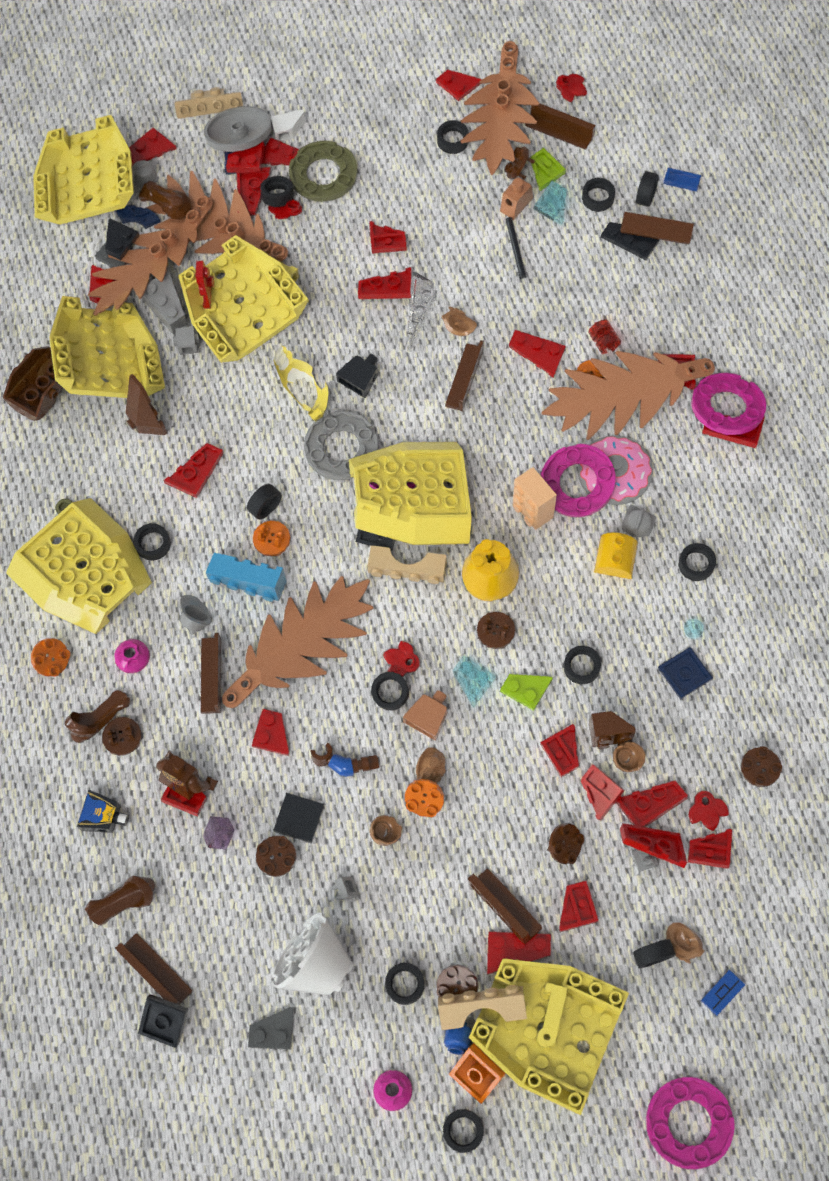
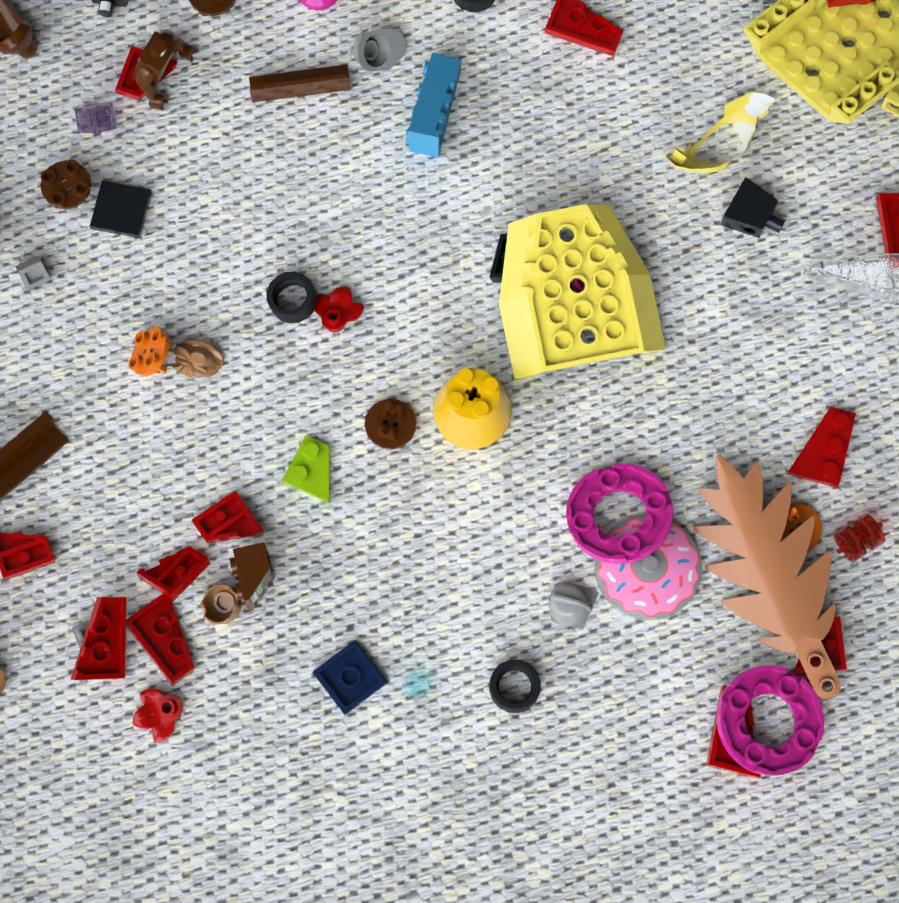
camera: 80 degrees right, 5 degrees up
(264, 501) = (541, 110): black tyre -> none
(271, 733) = (227, 163): red wing -> none
(279, 542) = (492, 140): orange plate -> none
(301, 636) = (356, 182): nougat plant -> none
(333, 423) = (662, 173): light grey plate -> none
(342, 765) = (189, 251): reddish brown piece -> none
(378, 829) = (105, 302): medium nougat hair -> none
(427, 714) = (262, 347): nougat torso -> none
(430, 568) = (470, 330): tan arch -> none
(458, 322) = (855, 334): medium nougat hat -> none
(464, 376) = (770, 352): reddish brown panel -> none
(472, 679) = (318, 400): clear light blue wing -> none
(534, 498) = (576, 448): light nougat brick -> none
(565, 843) = (87, 526): reddish brown plate -> none
(579, 650) = (348, 518): black tyre -> none
(616, 555) = (512, 576): yellow brick -> none
(711, 850) = (104, 720): red wing -> none
(768, 761) = (208, 769): reddish brown plate -> none

